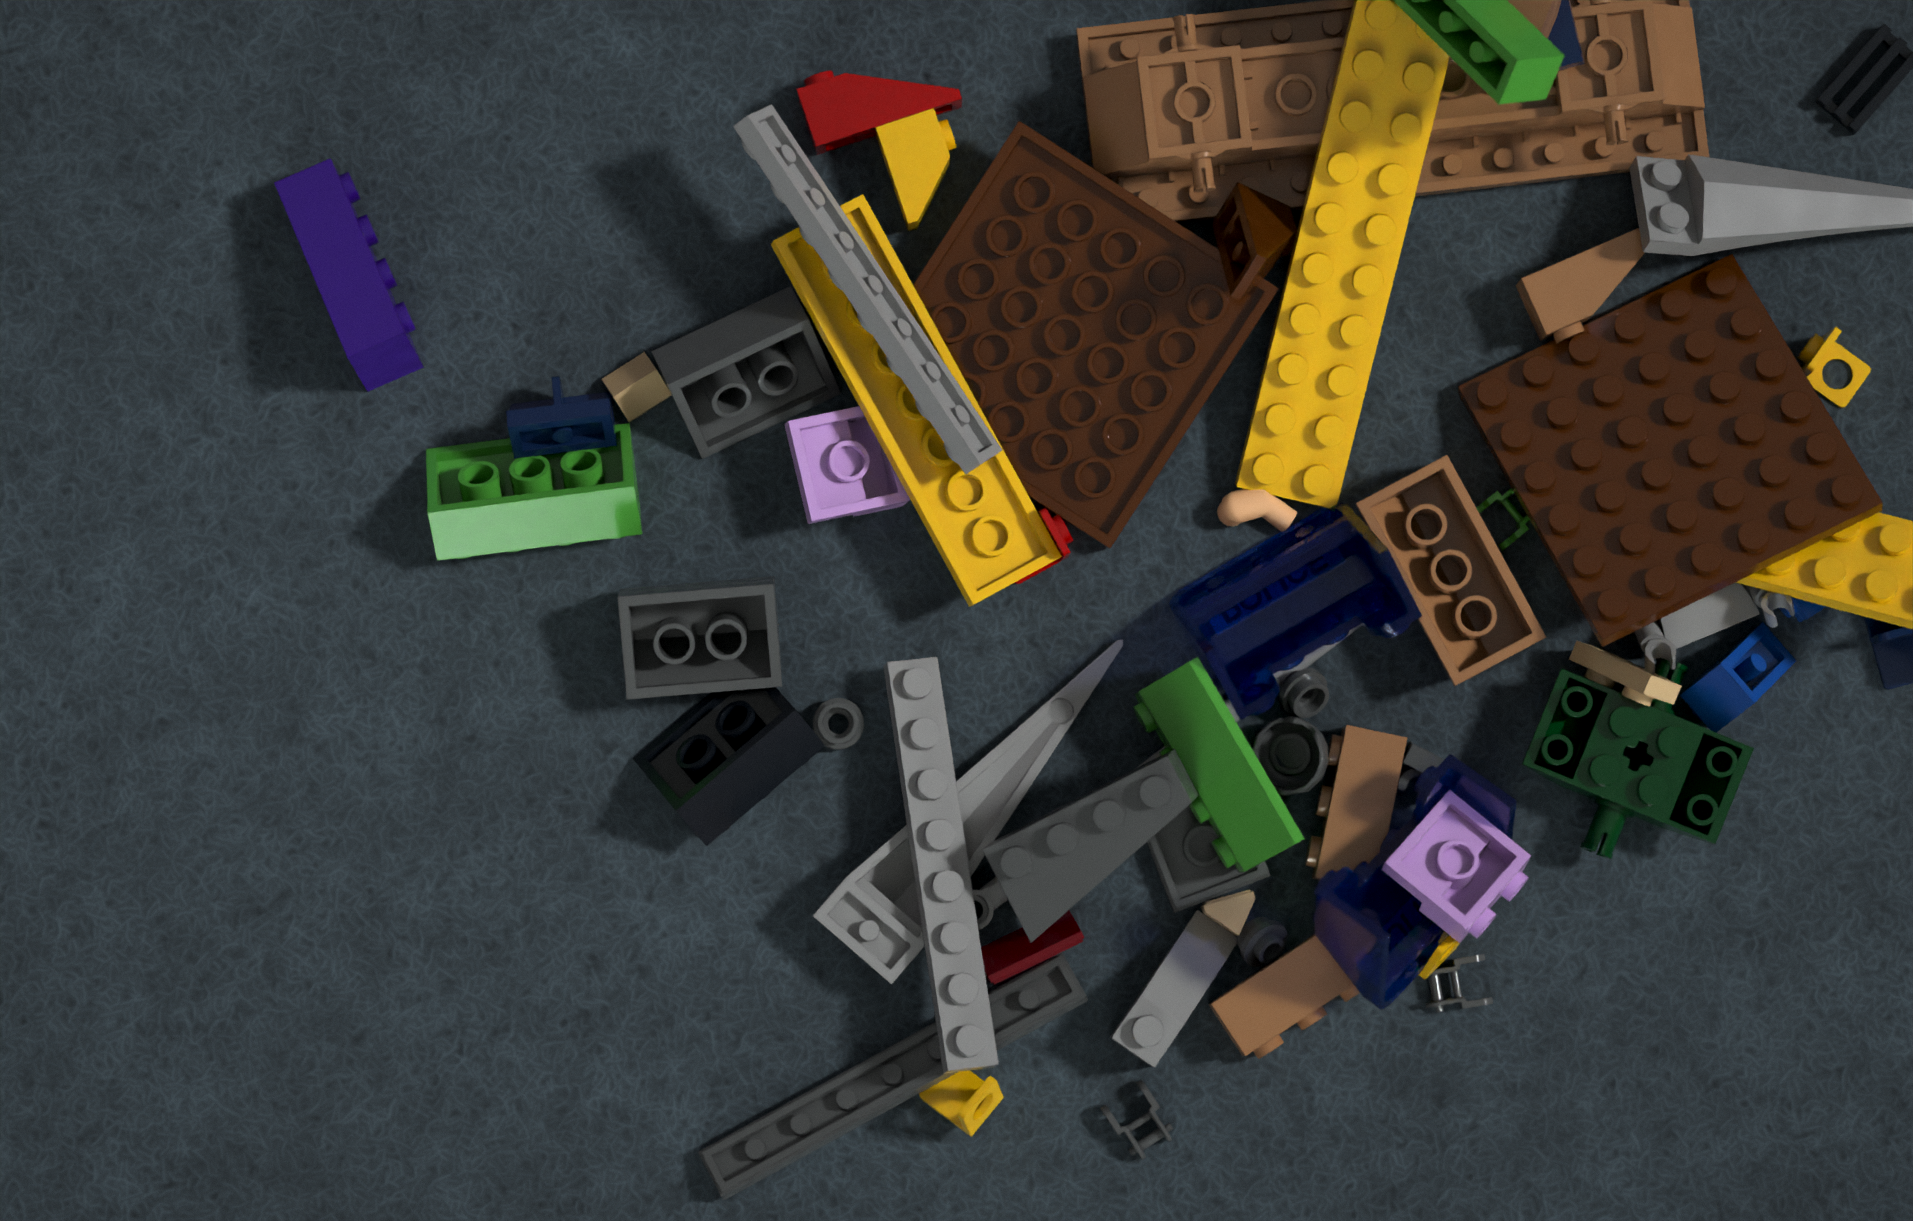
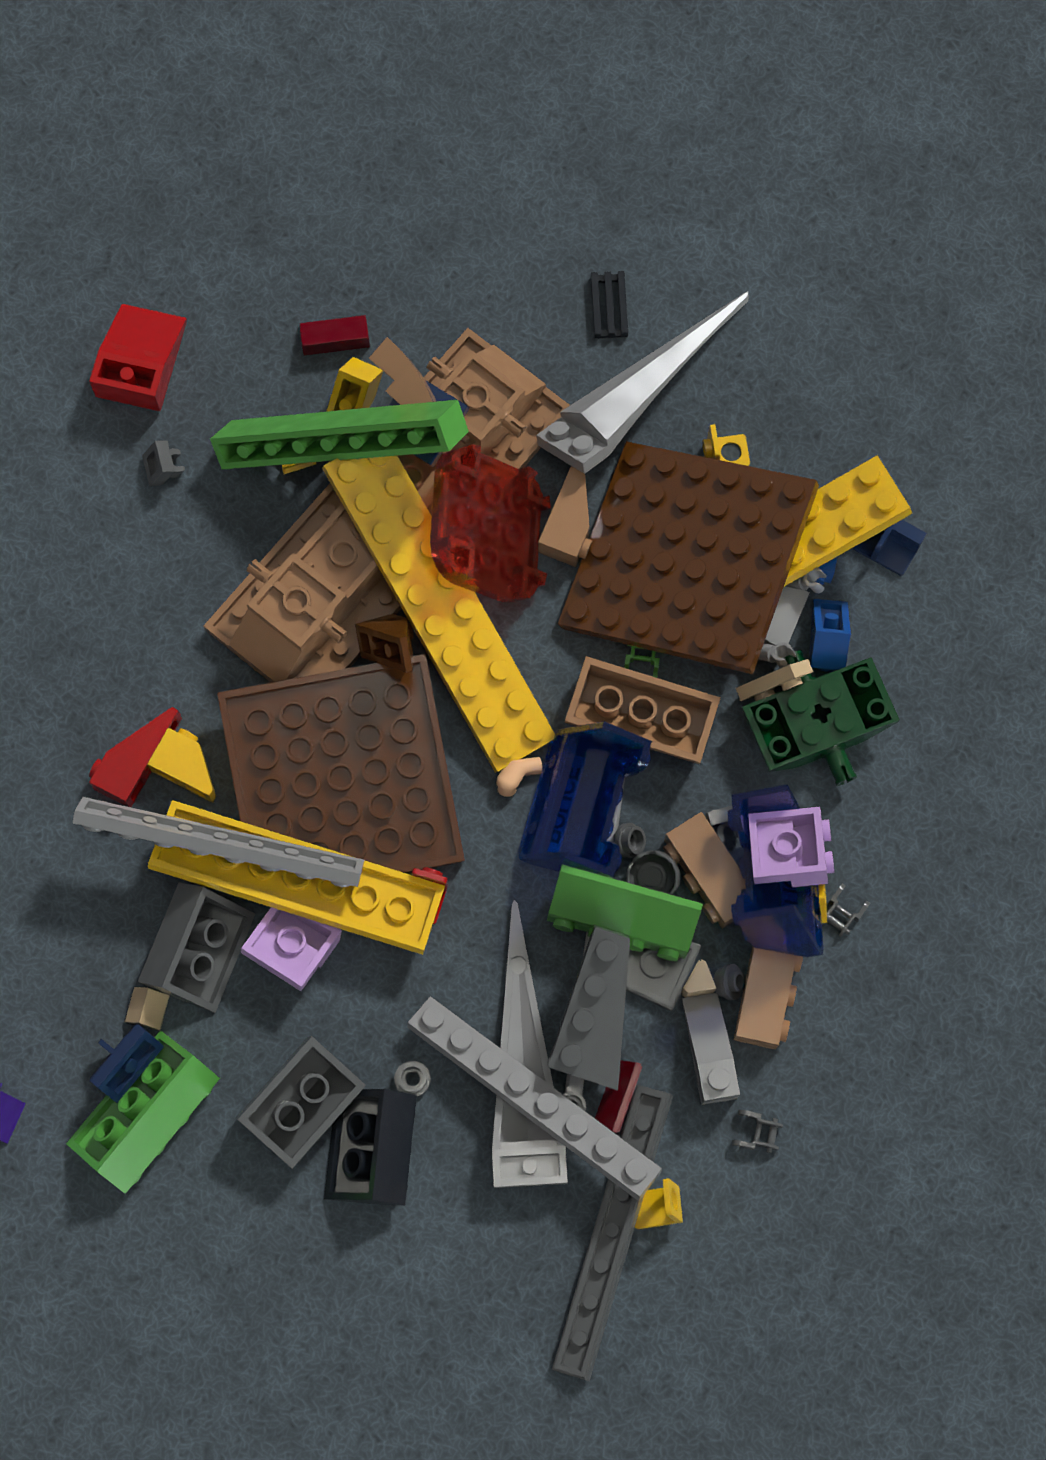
camera: 40 degrees left, 10 degrees down
(1481, 211) = (487, 525): none -> clear red tile

